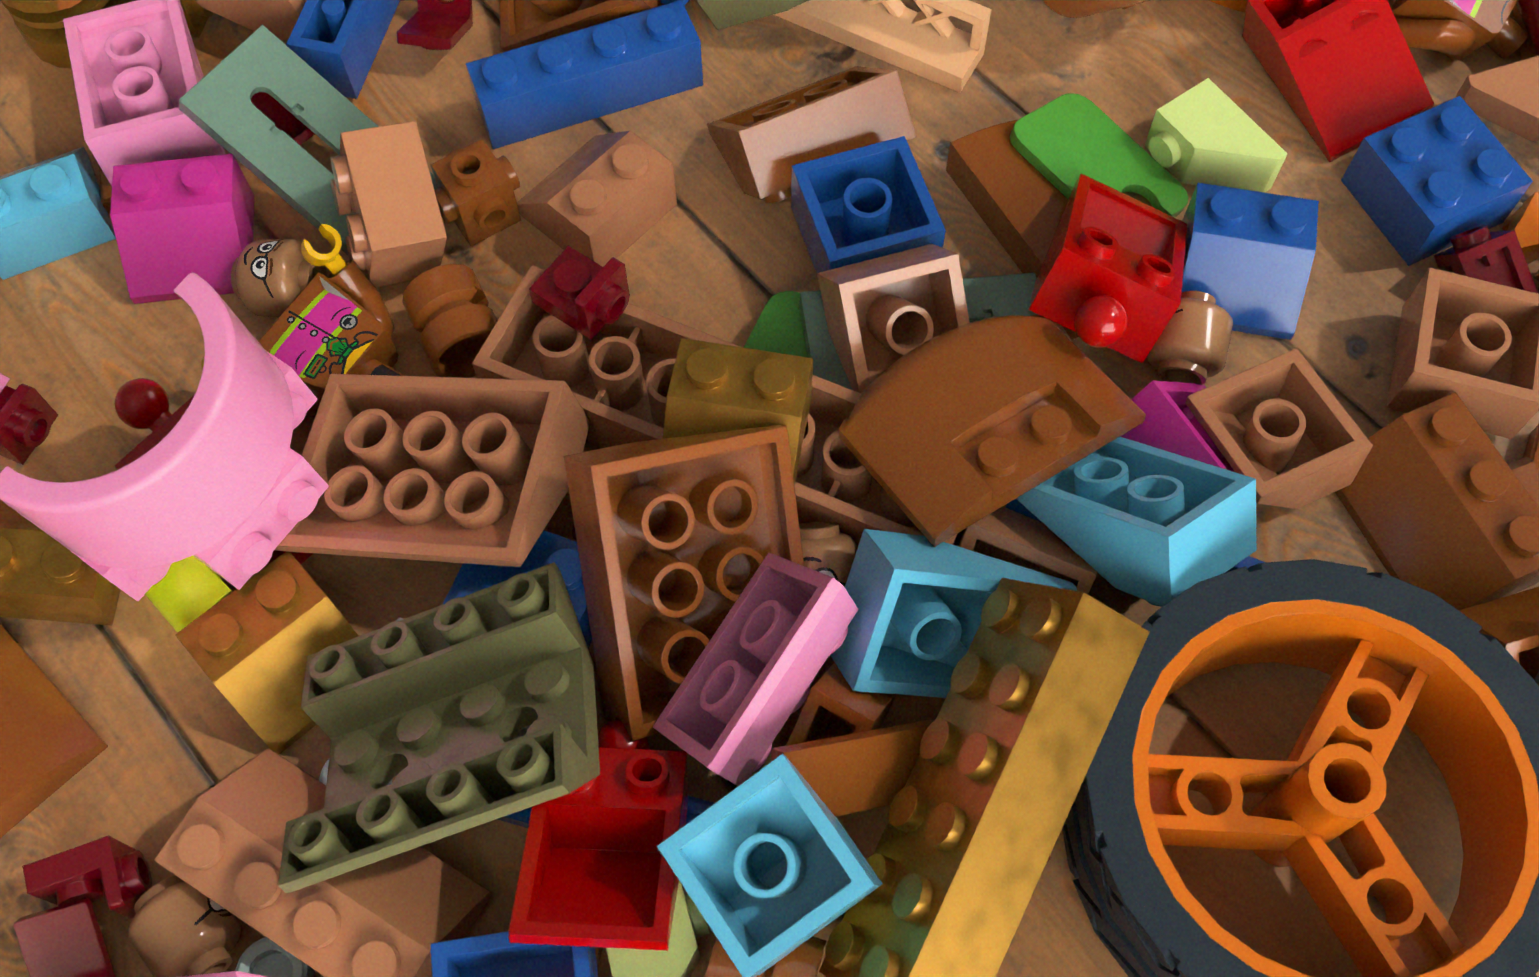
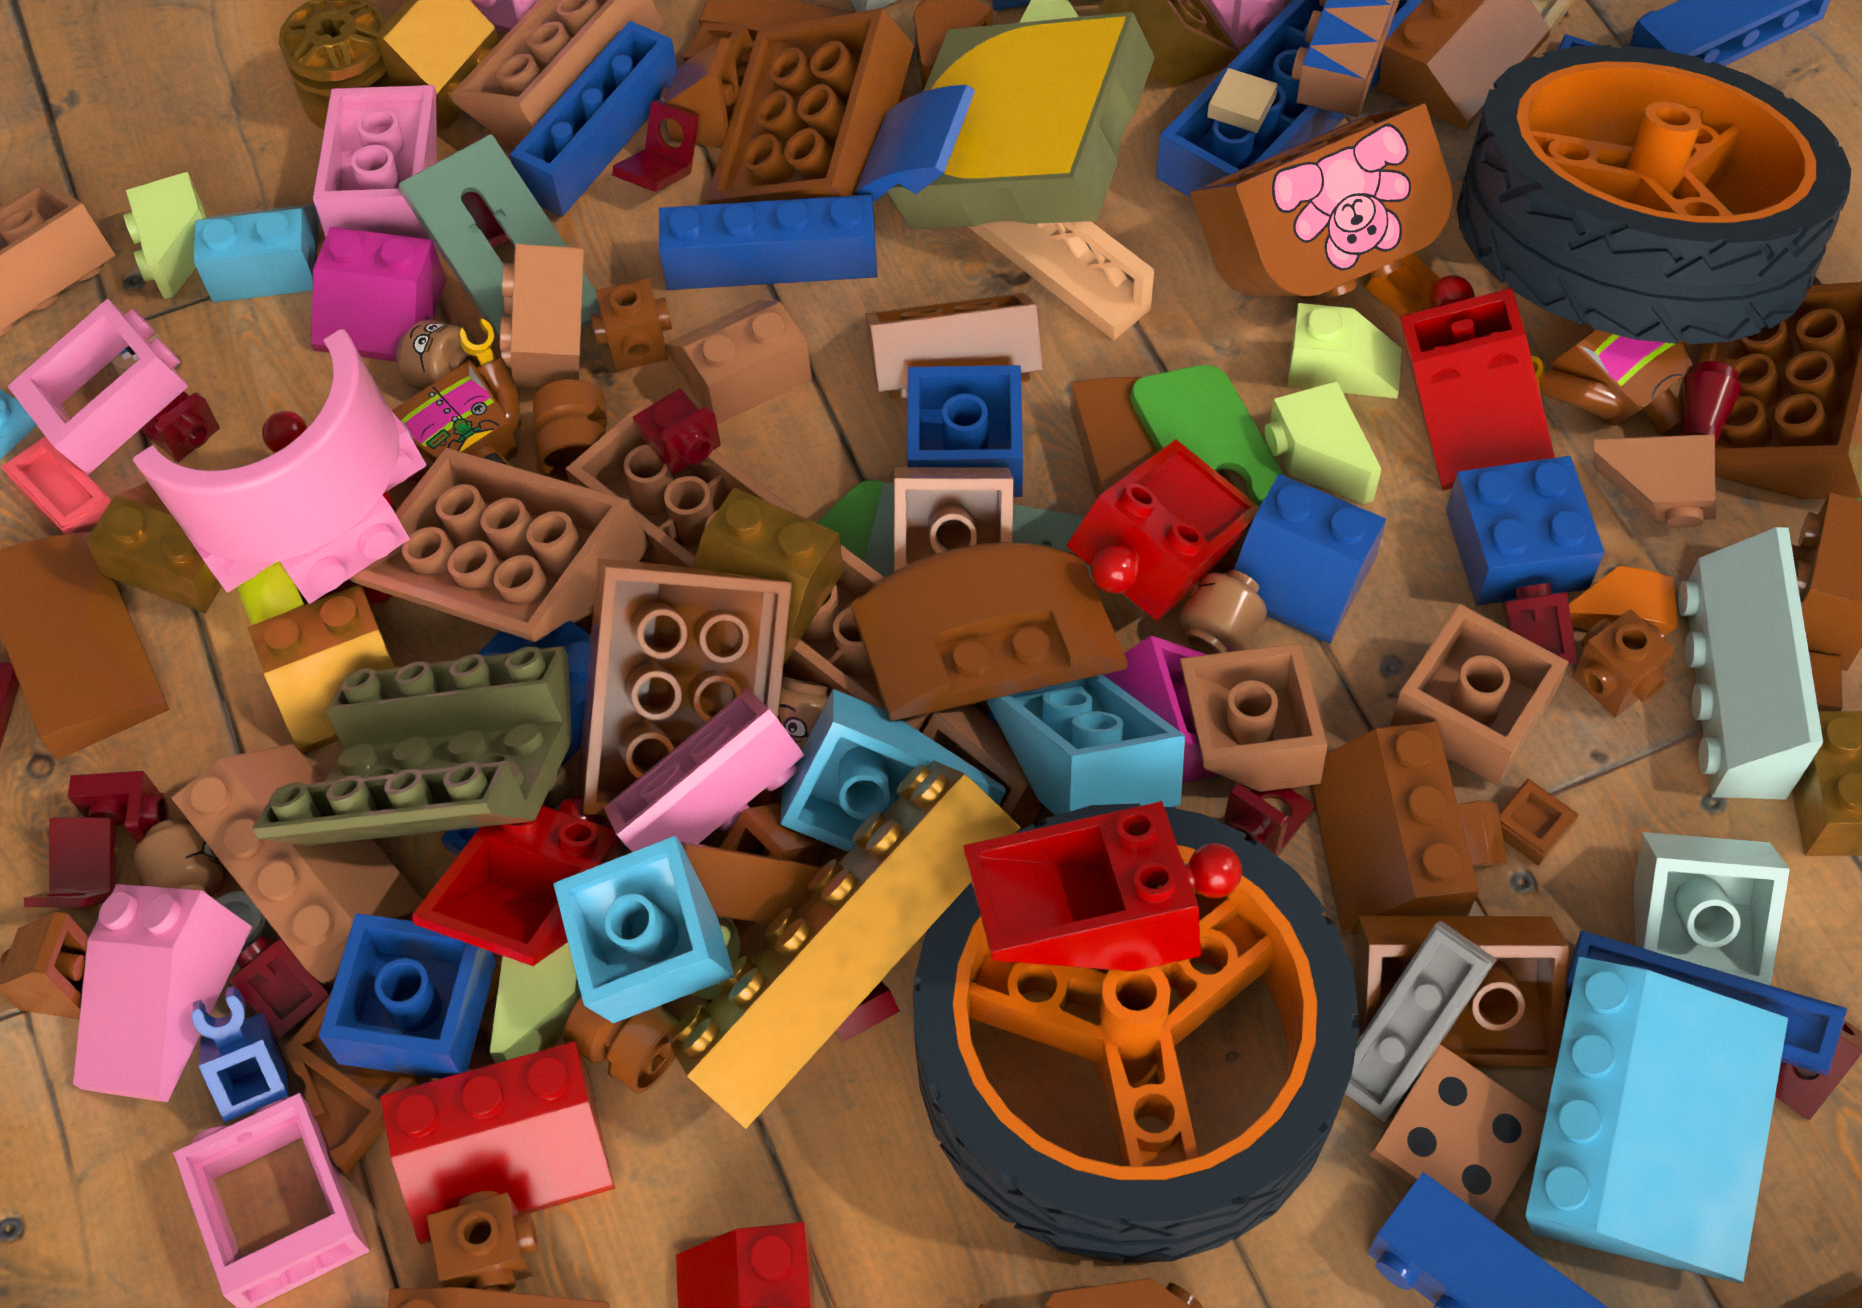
camera: 20 degrees right, 5 degrees down
(1184, 47) = (1343, 348): none -> yellowish green slope
(1276, 683) = (1090, 891): none -> red slope
(1312, 537) = (1263, 822): none -> dark red bracket

